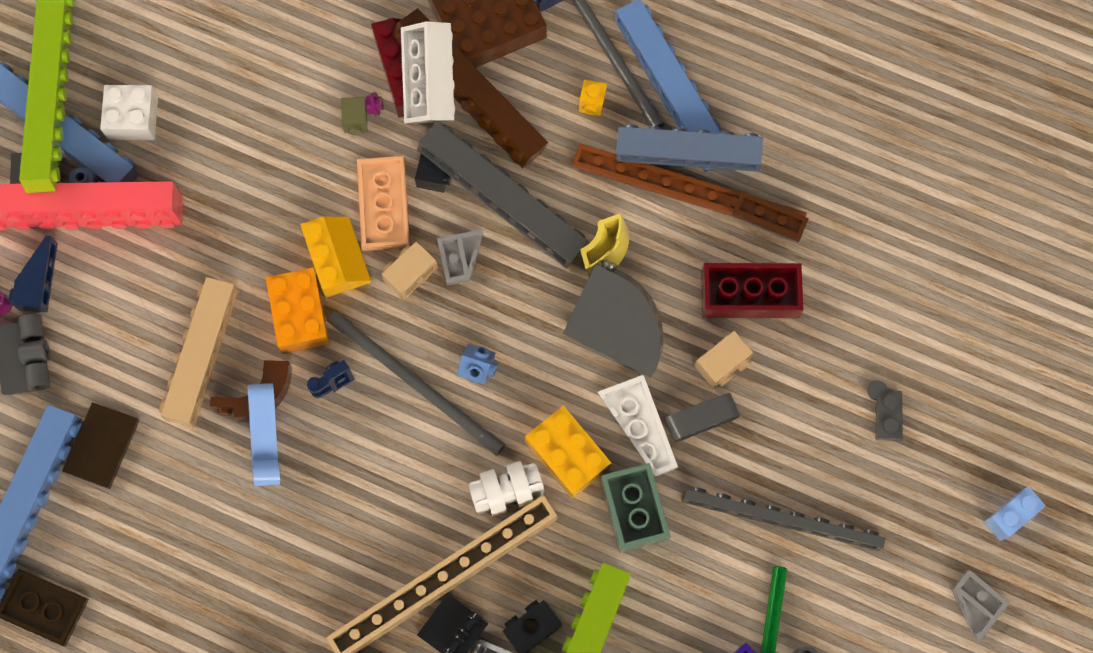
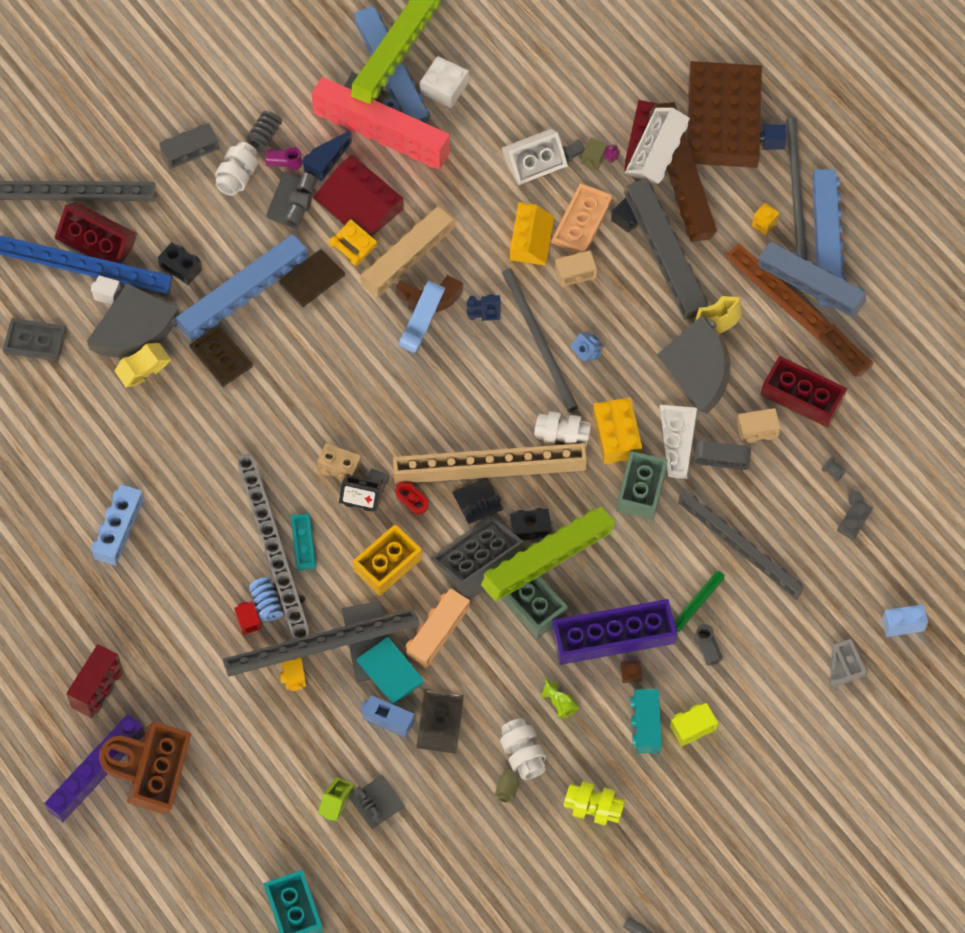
camera: 30 degrees right, 10 degrees down
(105, 314) = (360, 196): none -> dark red slope
(129, 366) = (357, 238): none -> yellow plate
(286, 152) = (535, 156): none -> white slope
(297, 310) = (486, 257): light orange brick -> none
(327, 122) = (573, 150): none -> dark grey bush
(459, 255) = (615, 275): light grey wing -> none
(835, 367) = (834, 469): none -> dark grey bush

